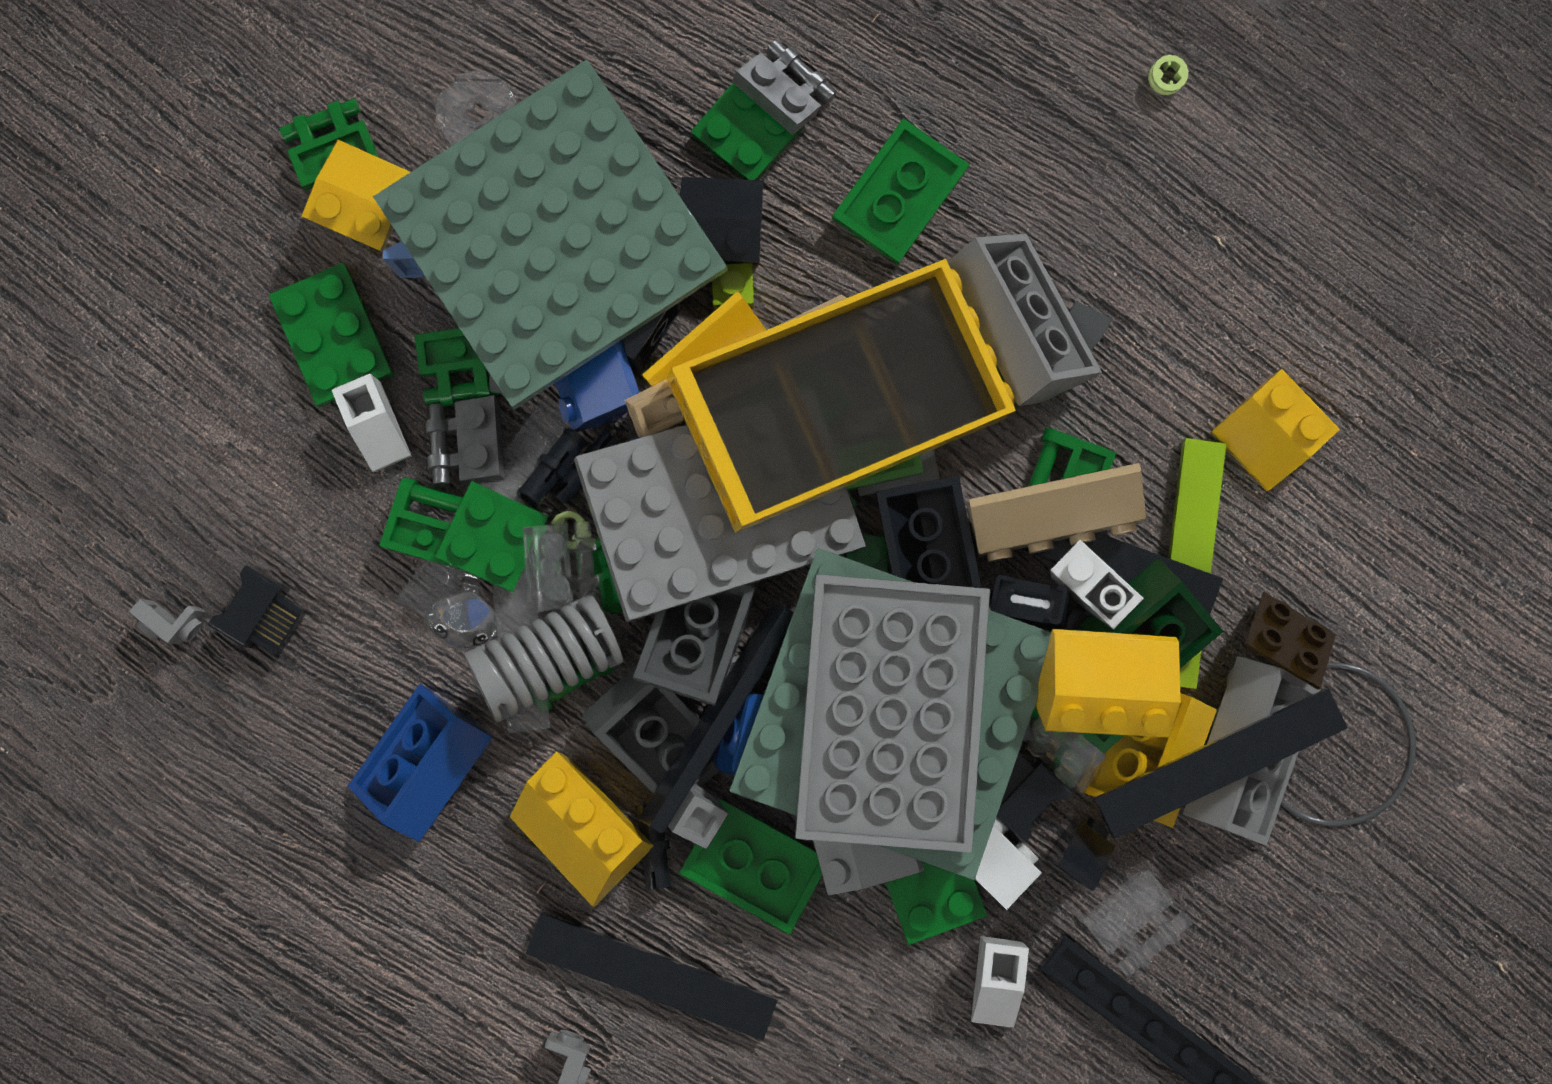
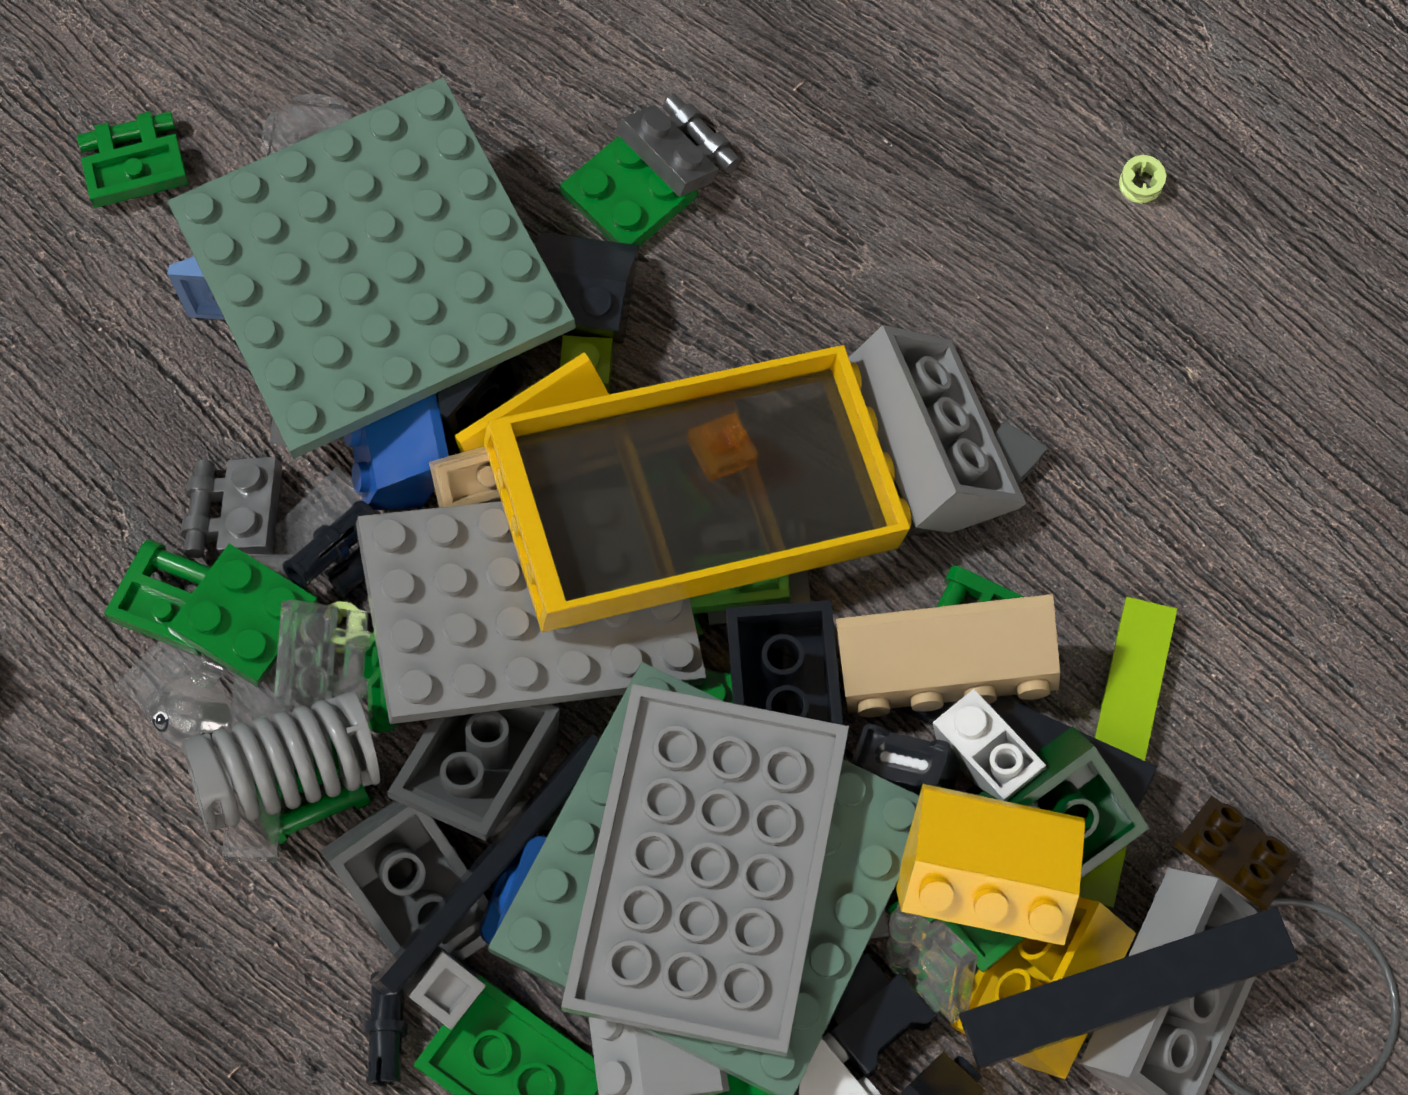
camera: 10 degrees right, 15 degrees down
(330, 332) = (94, 371): green plate -> none
(345, 194) = (136, 215): yellow slope -> none
(371, 422) = (122, 469): white slope -> none
(419, 763) = (107, 889): blue slope -> none
(448, 353) = (227, 404): green plate -> none
(578, 828) = (291, 990): yellow slope -> none
(860, 363) = (722, 446): none -> clear orange tile
(900, 192) = (802, 276): green plate -> none
(1275, 430) = (1239, 597): yellow slope -> none

